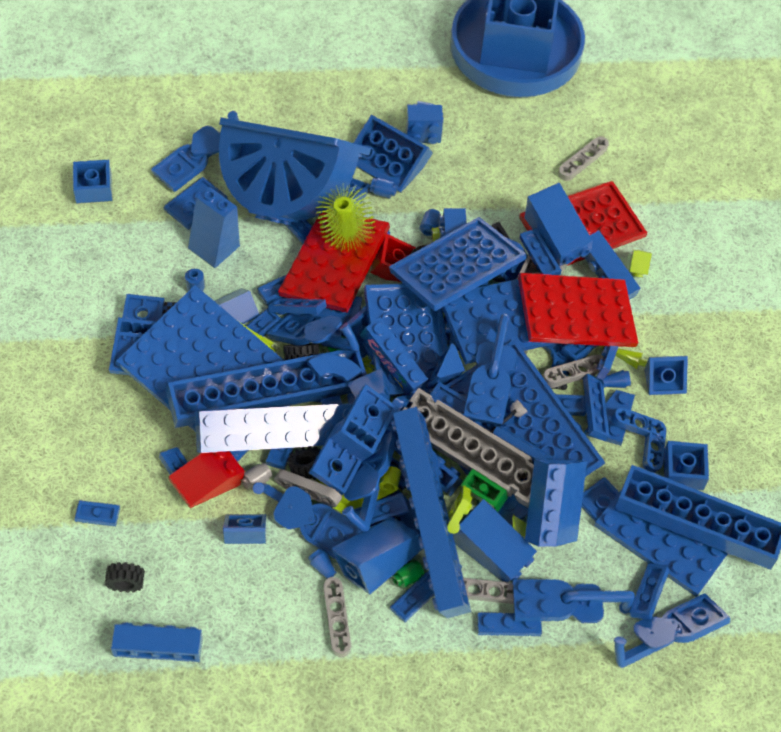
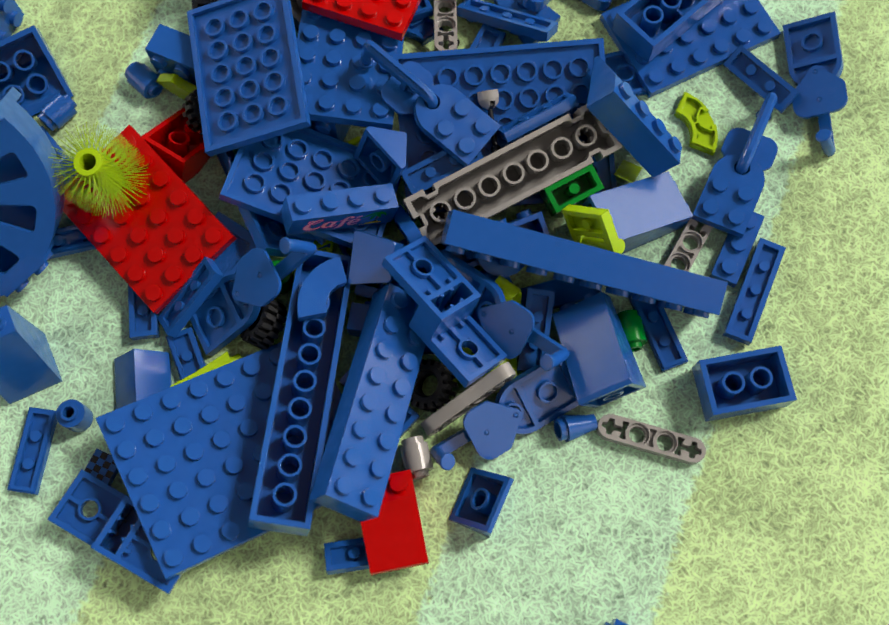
camera: 60 degrees left, 15 degrees up
(163, 272) = (33, 451): none -> blue tile
(403, 658) = (743, 383): none -> blue brick
(480, 646) = (754, 291): none -> blue plate
(591, 566) = (699, 124): none -> lime tile

